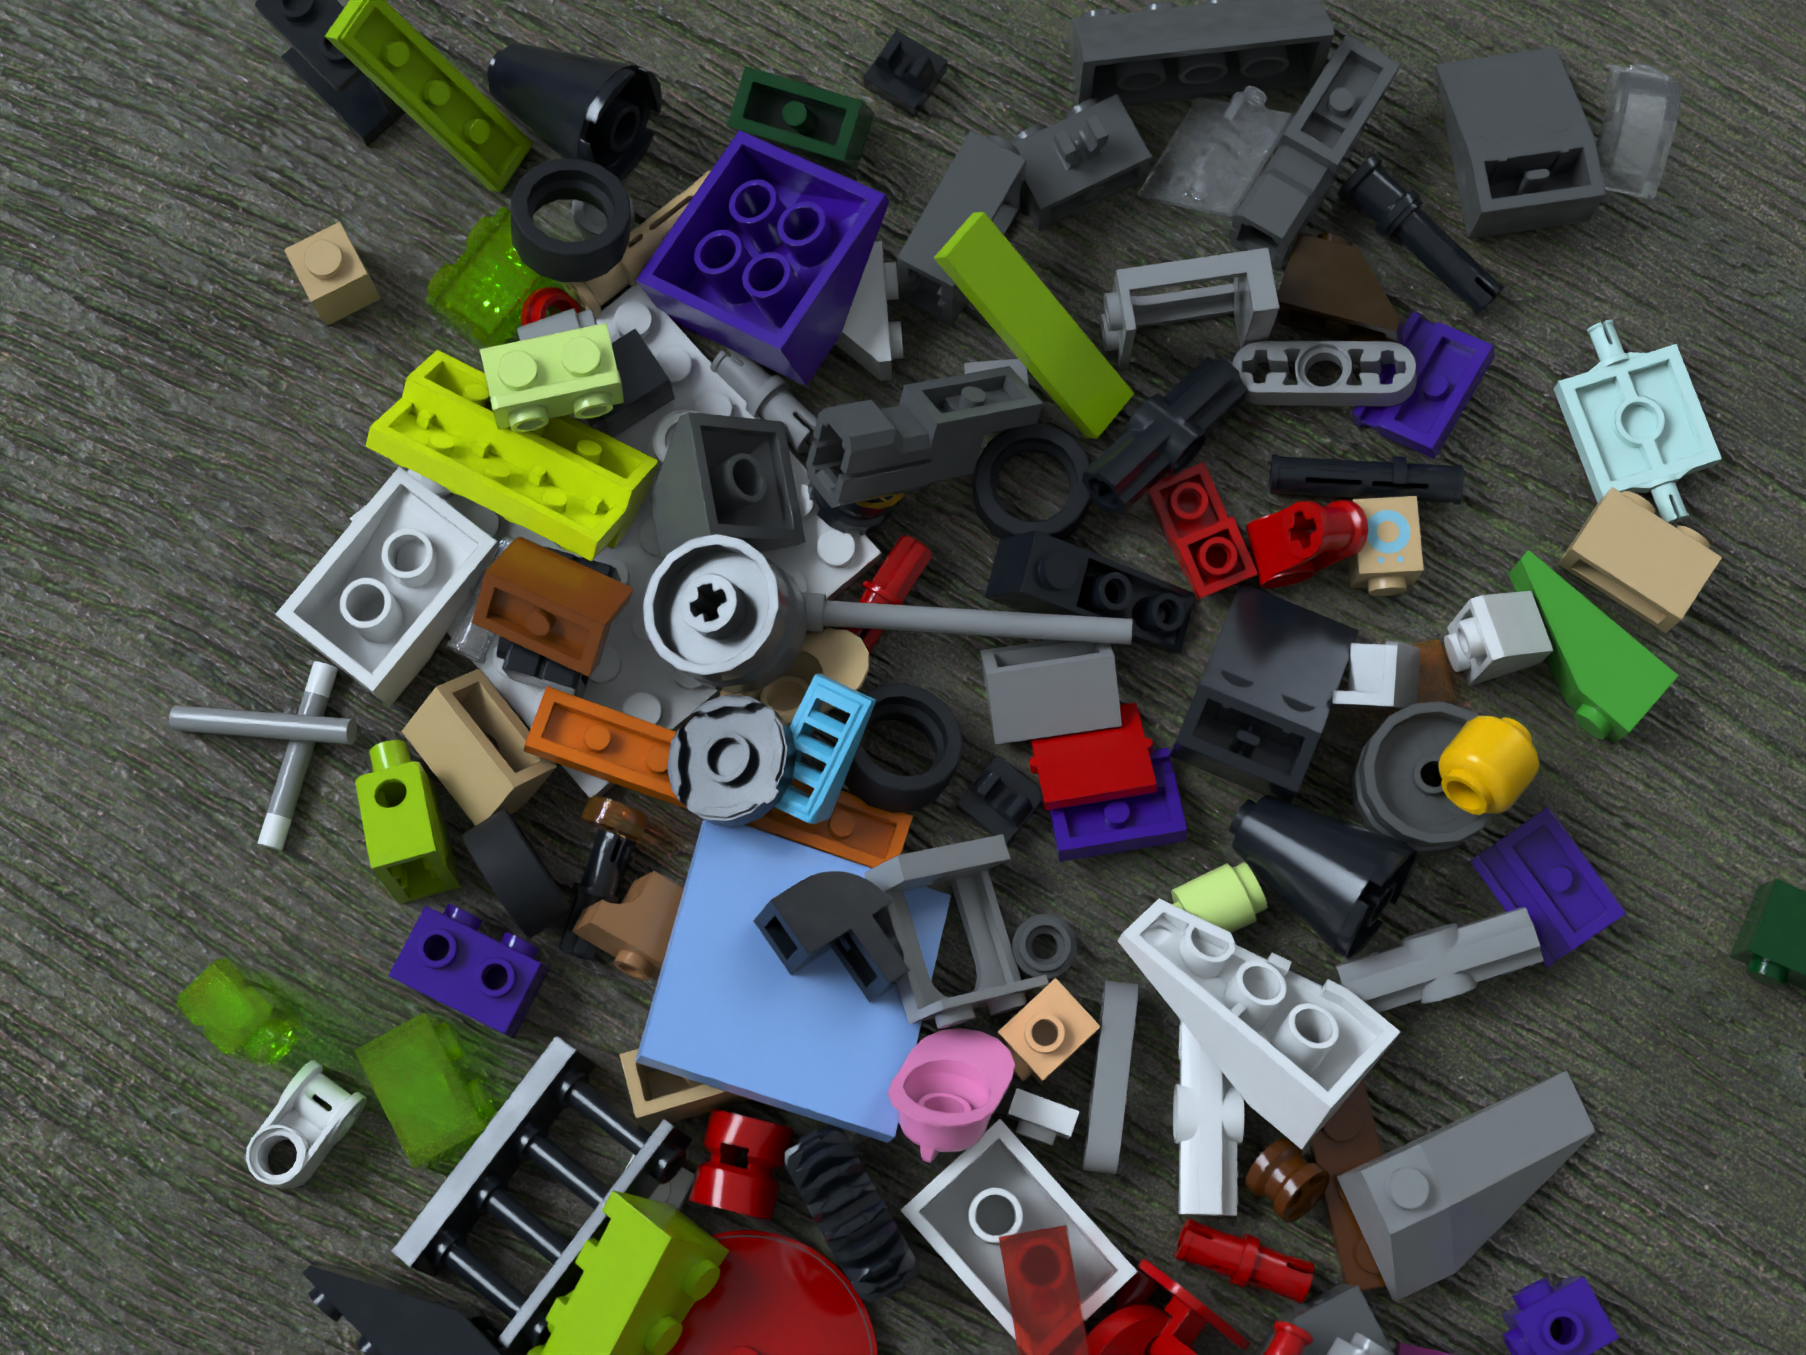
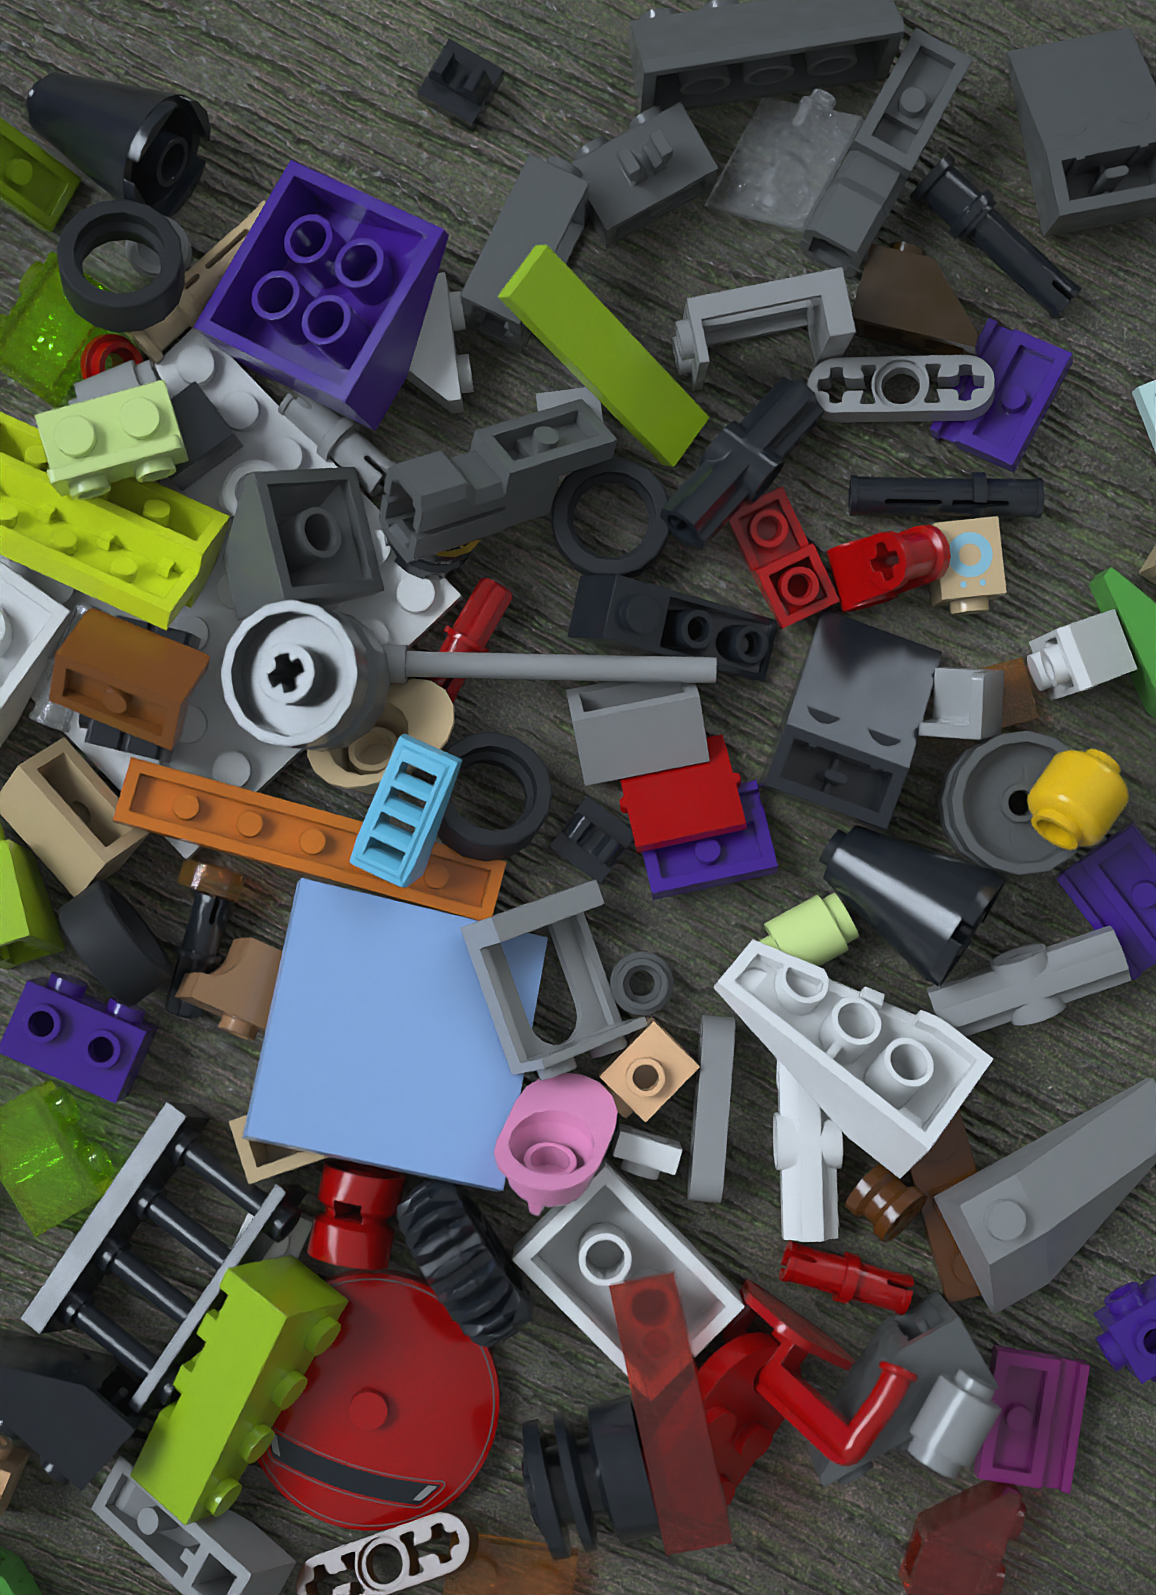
camera: 10 degrees left, 10 degrees up
(732, 760) = (321, 826): tile -> none
(801, 118) = (354, 141): dark green brick -> none
(837, 914) = (434, 975): black brick -> none

